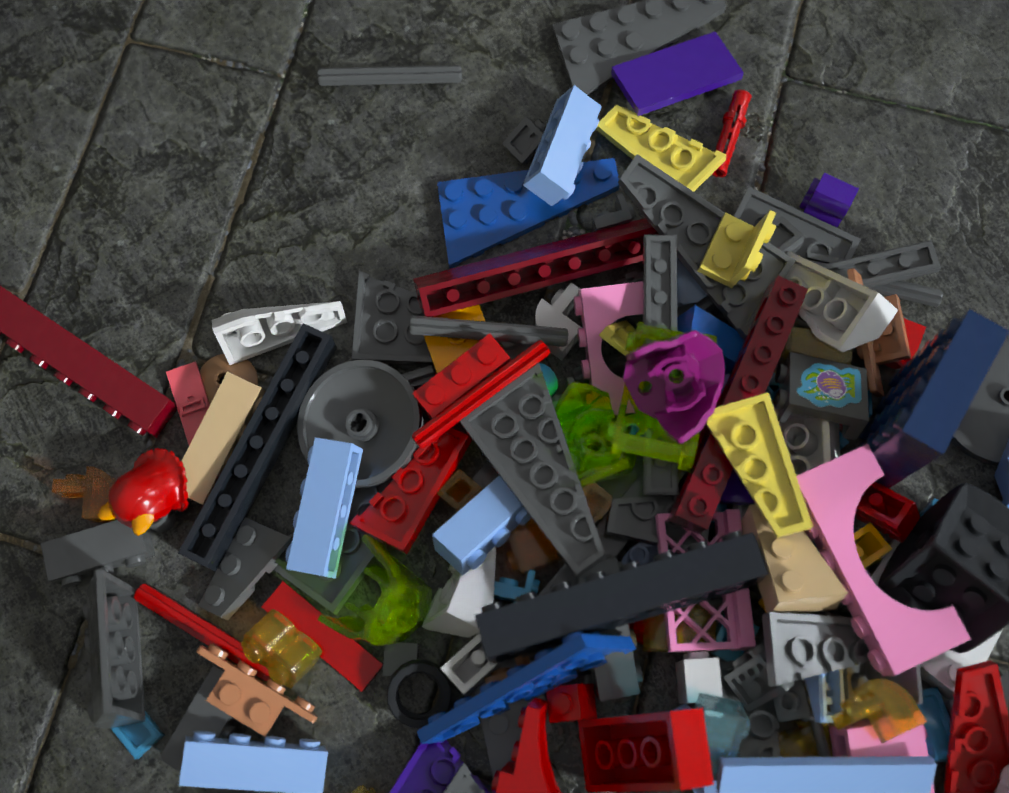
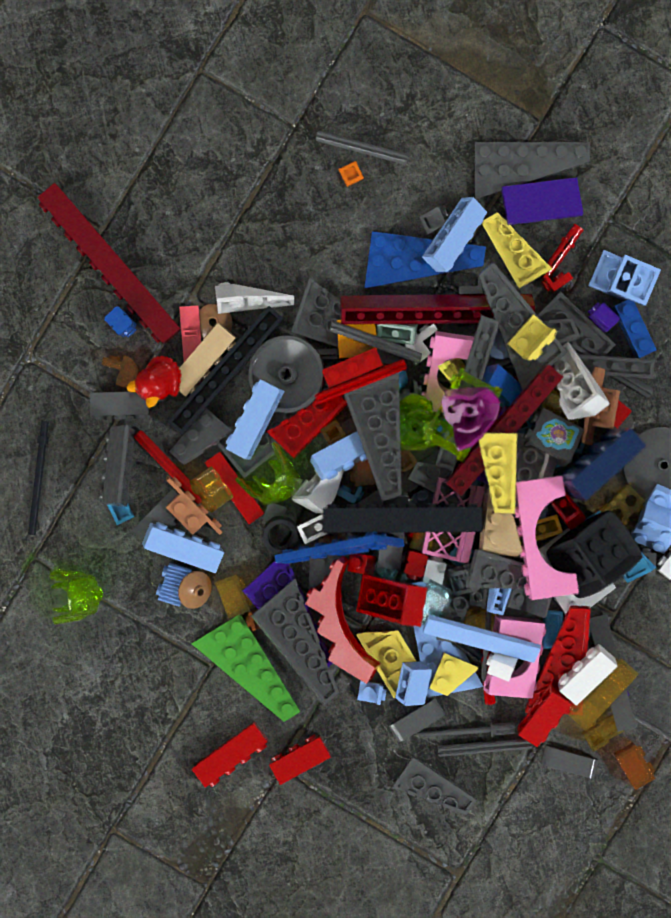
camera: 10 degrees right, 15 degrees up
(71, 415) = (121, 322): none -> blue brick
(384, 115) = (351, 173): none -> orange tile
(521, 308) = (398, 333): none -> sand green slope
(663, 676) = (415, 564): none -> red brick
(736, 181) = (560, 280): none -> red bracket
(839, 138) = (624, 277): none -> light blue bracket
(882, 210) = (634, 329): none -> blue brick
(886, 707) = (525, 613): clear yellow brick -> none
(959, 470) = (619, 502): none -> clear yellow brick

